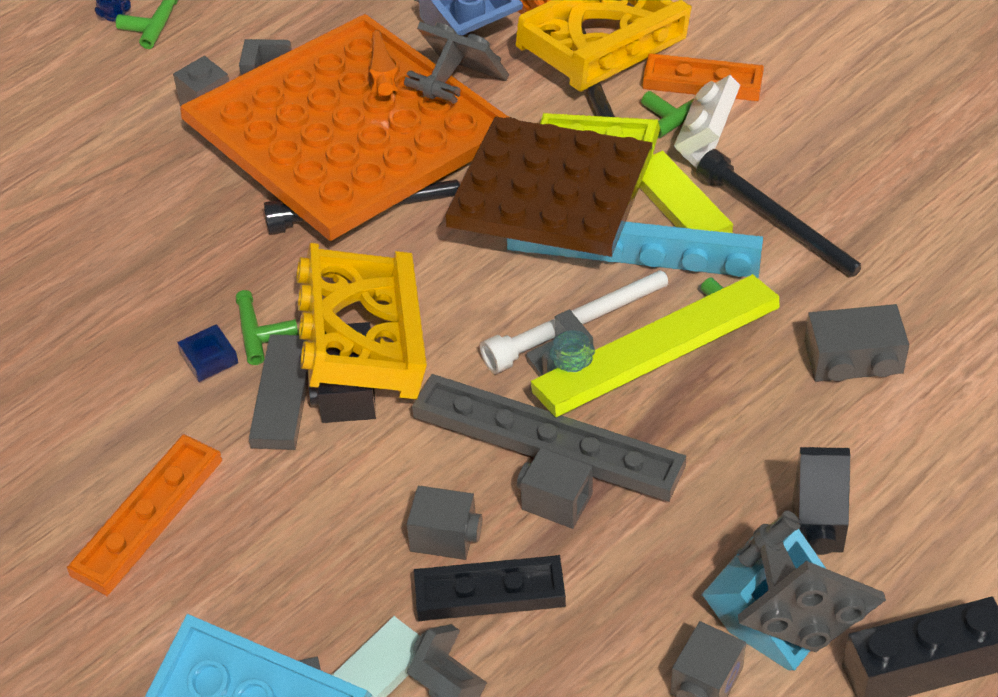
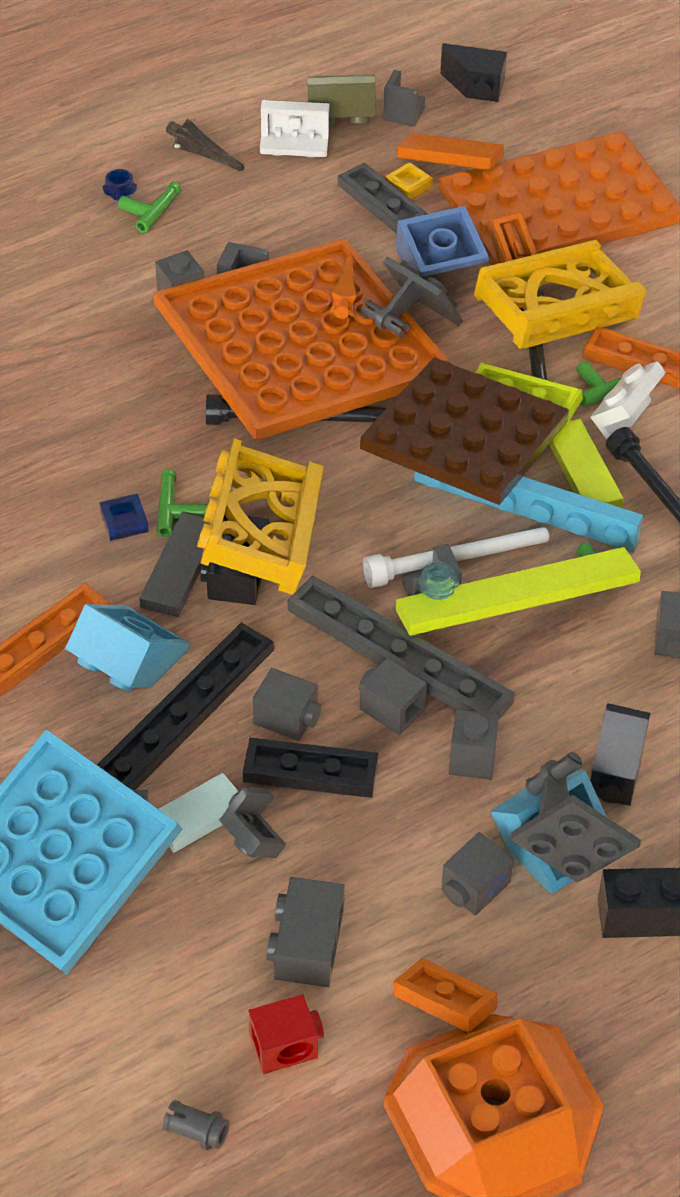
camera: 10 degrees right, 0 degrees up
(246, 495) = (124, 645): none -> medium azure slope
(331, 551) = (187, 706): none -> black tile
(660, 522) = (473, 744): none -> dark grey brick

